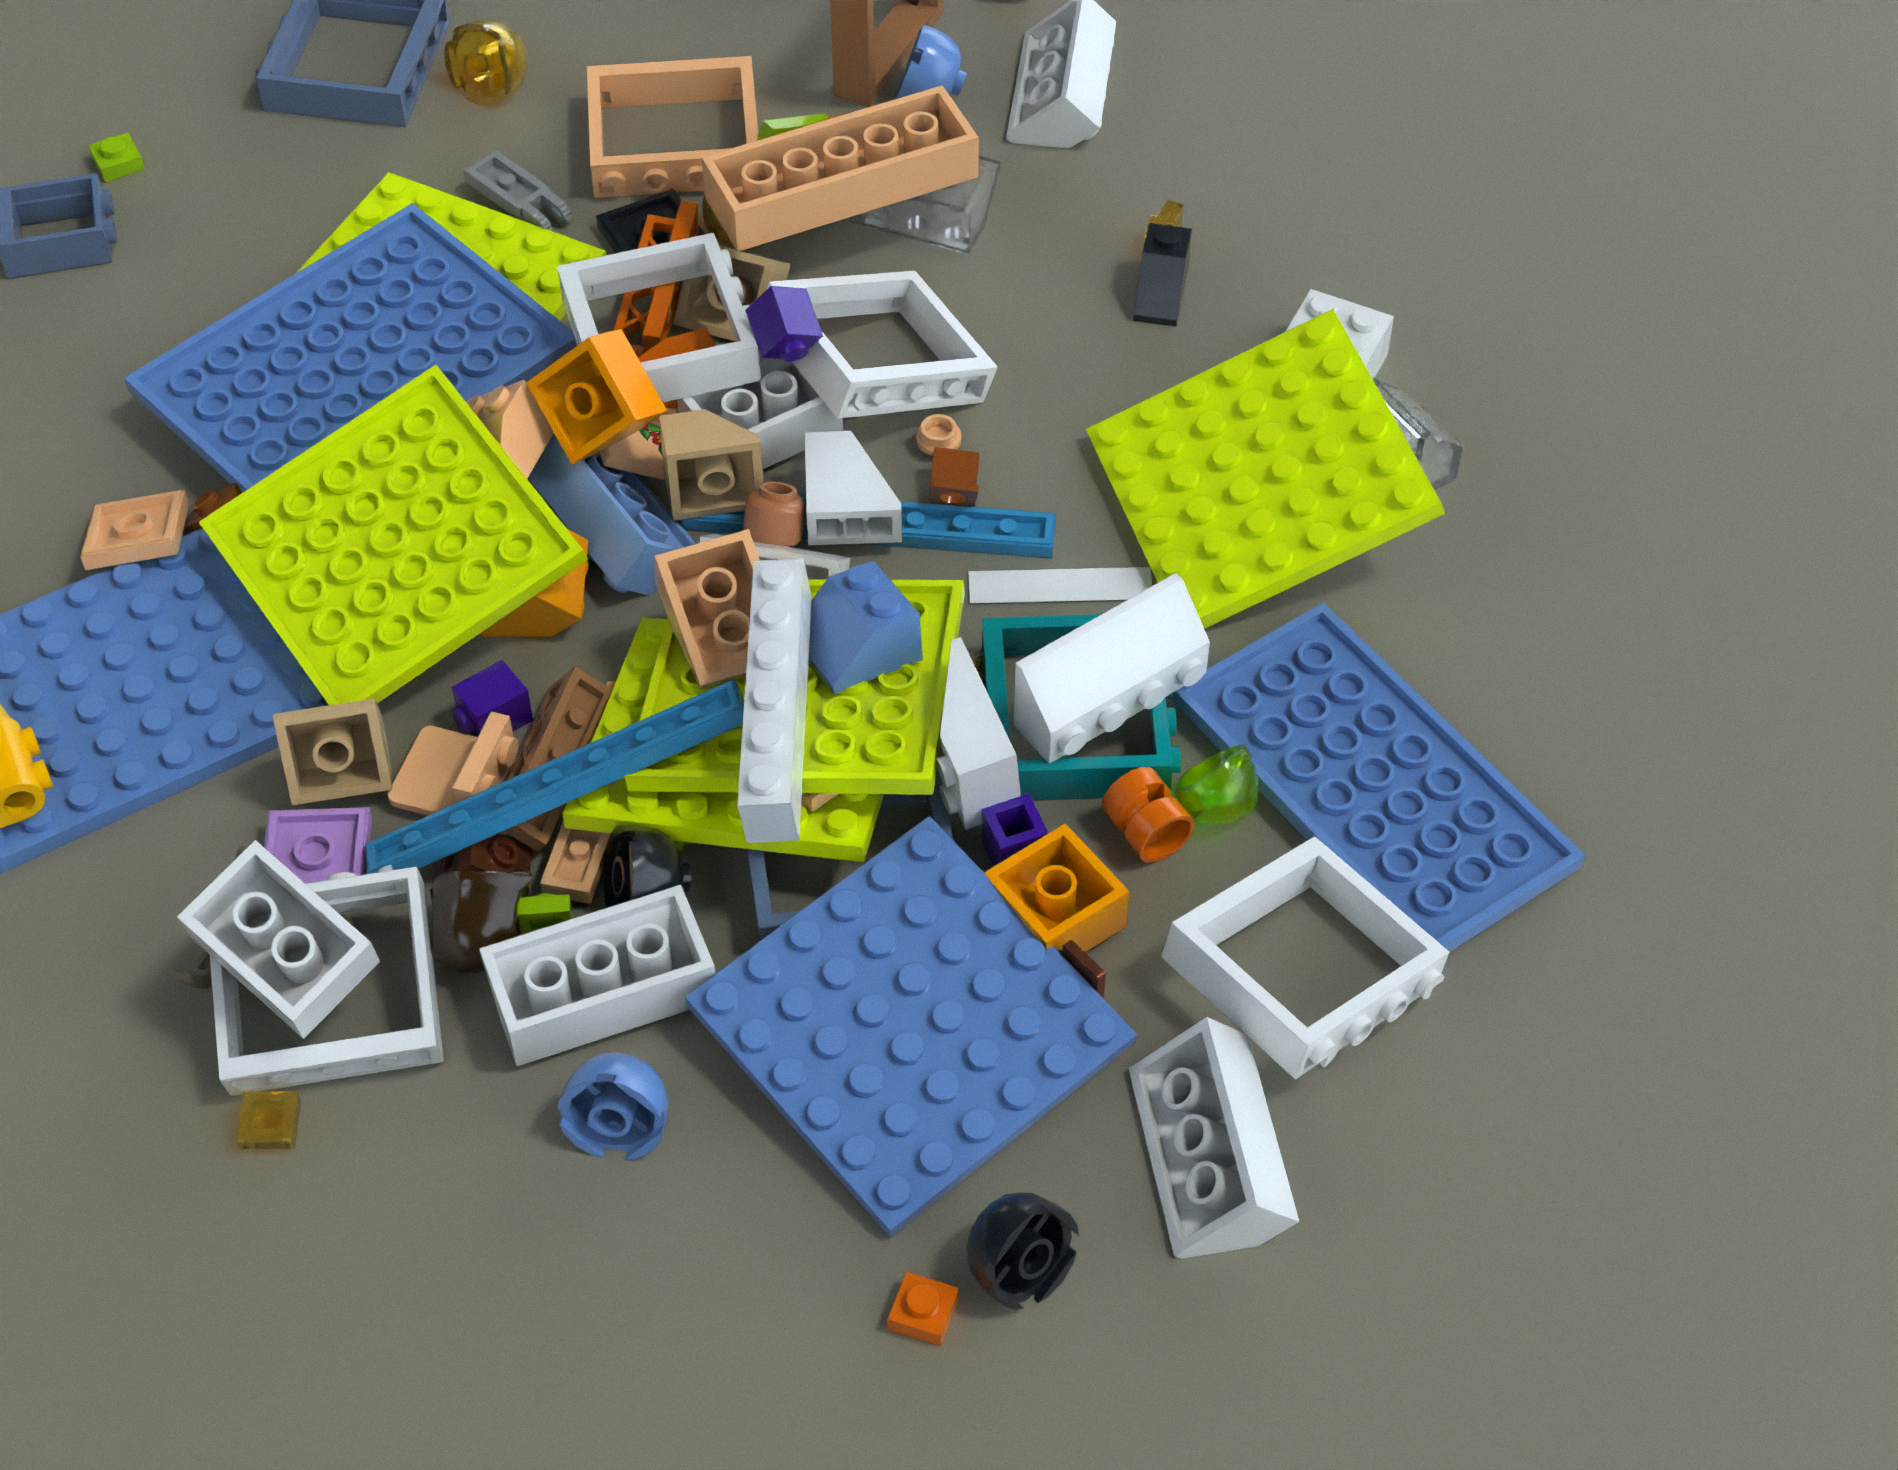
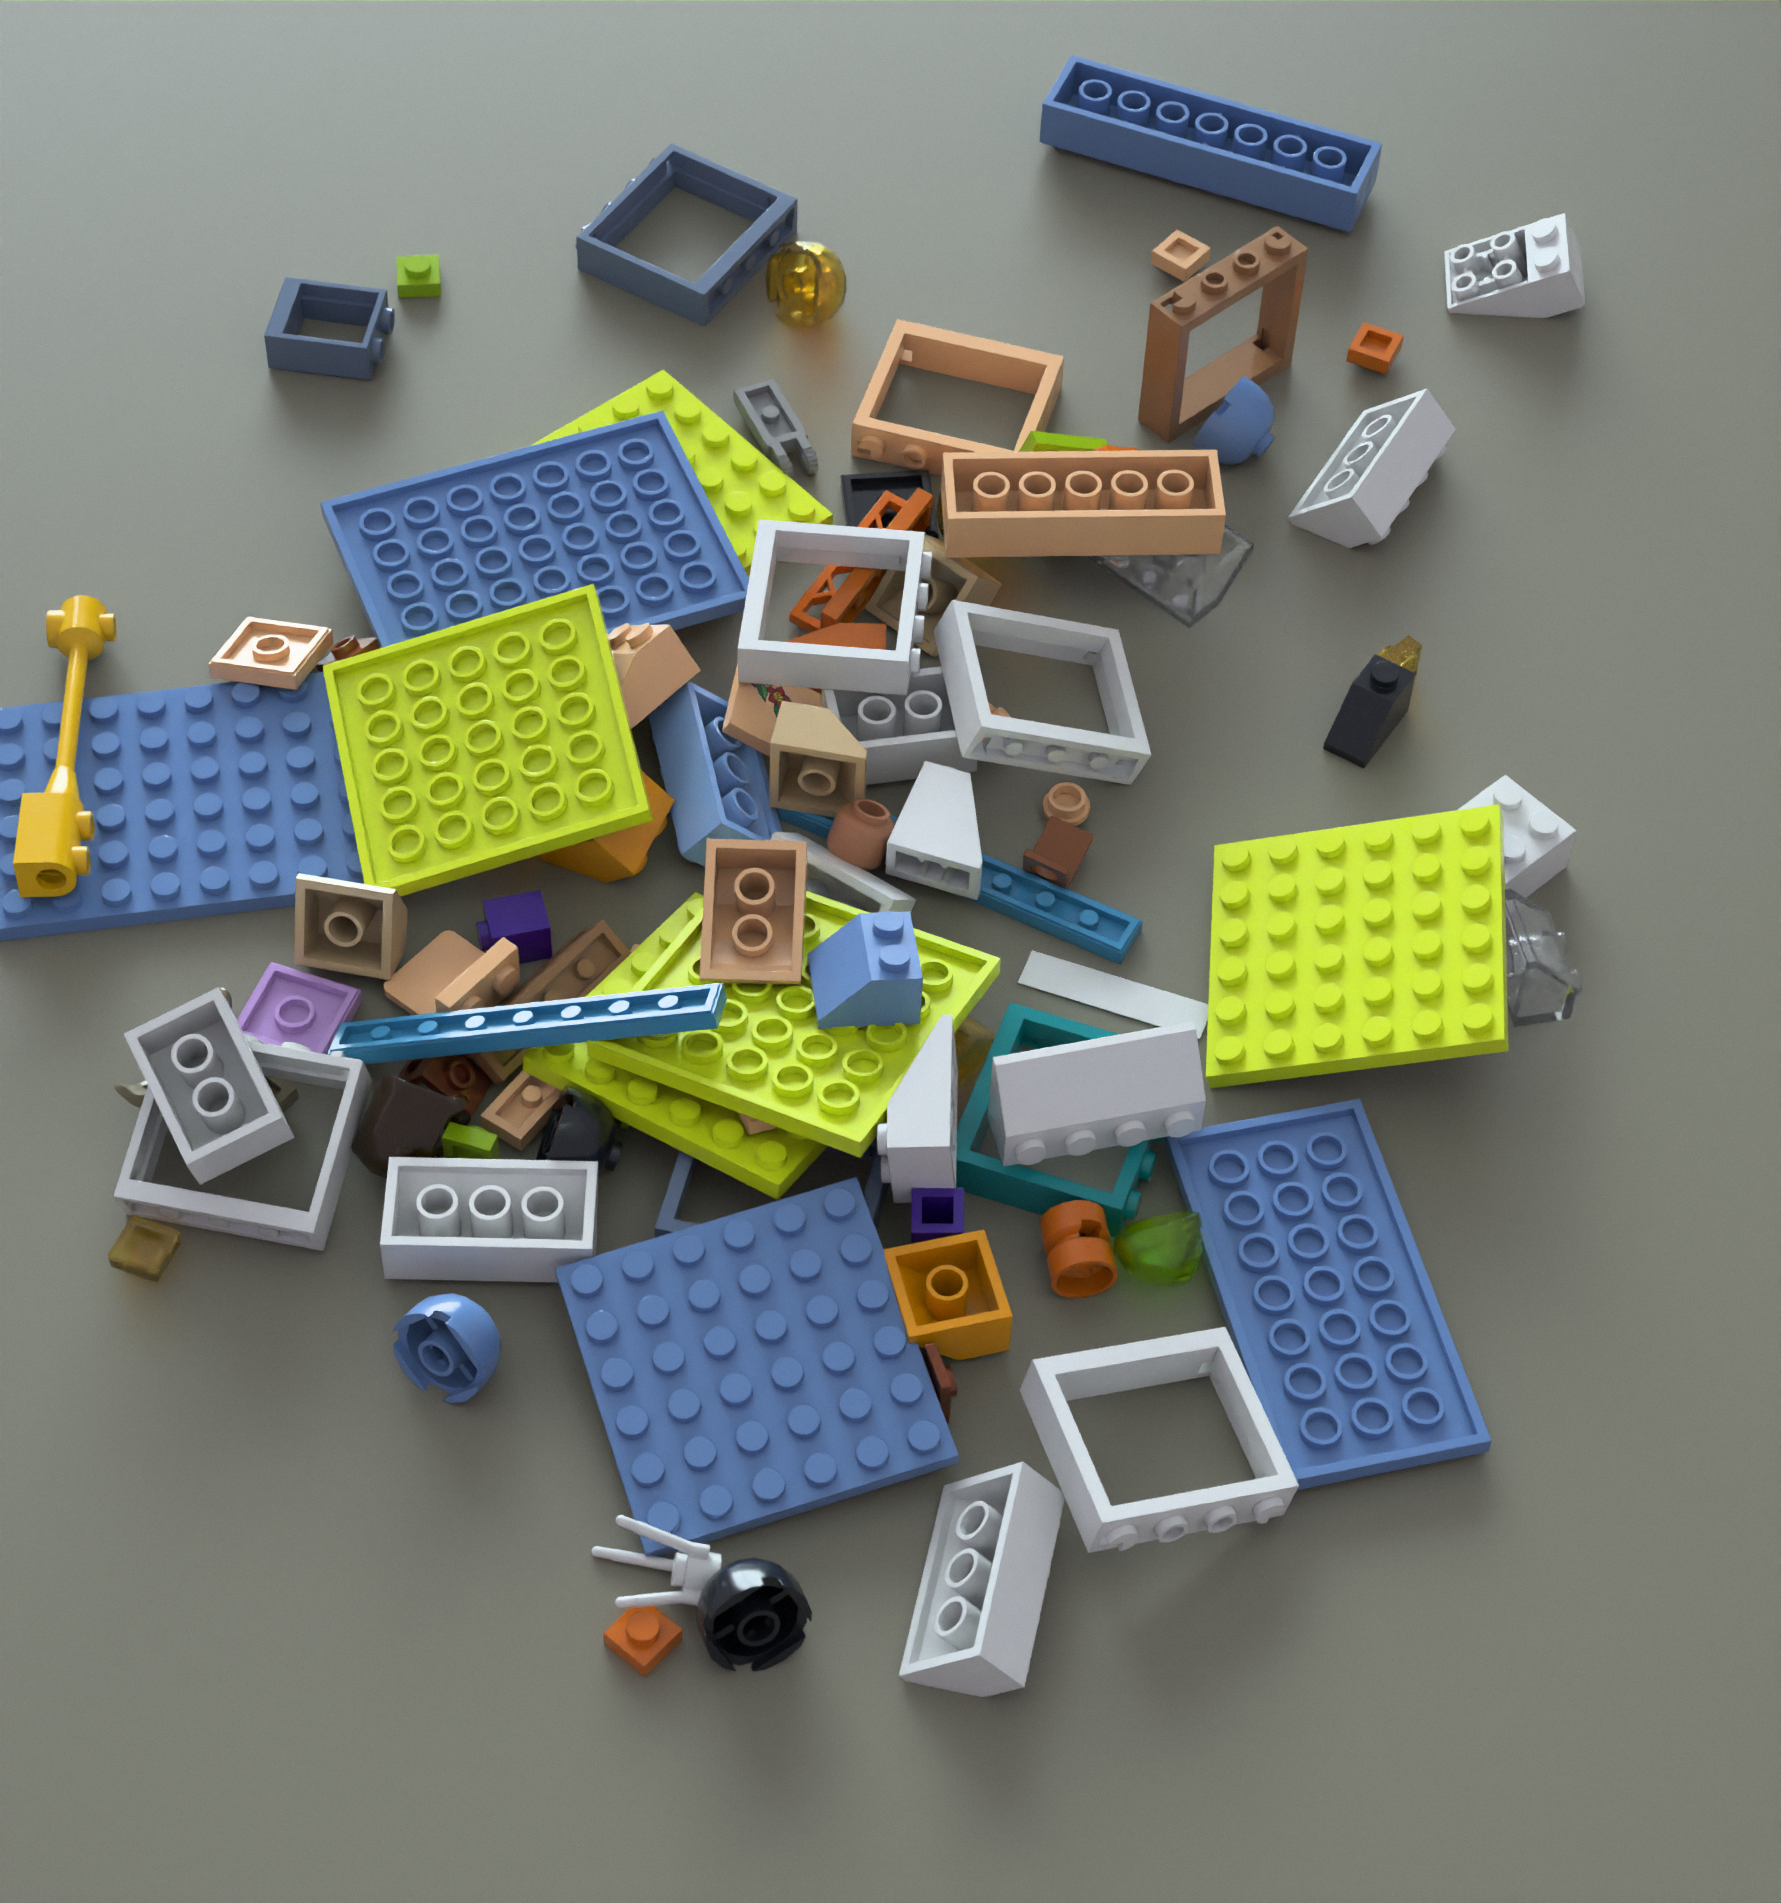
camera: 20 degrees right, 0 degrees up
(596, 395) = (730, 662): light orange slope -> none
(775, 702) = (748, 1016): white brick -> none
(784, 323) = (943, 647): dark purple brick -> none
(943, 1231) = (688, 1570): none -> white plant

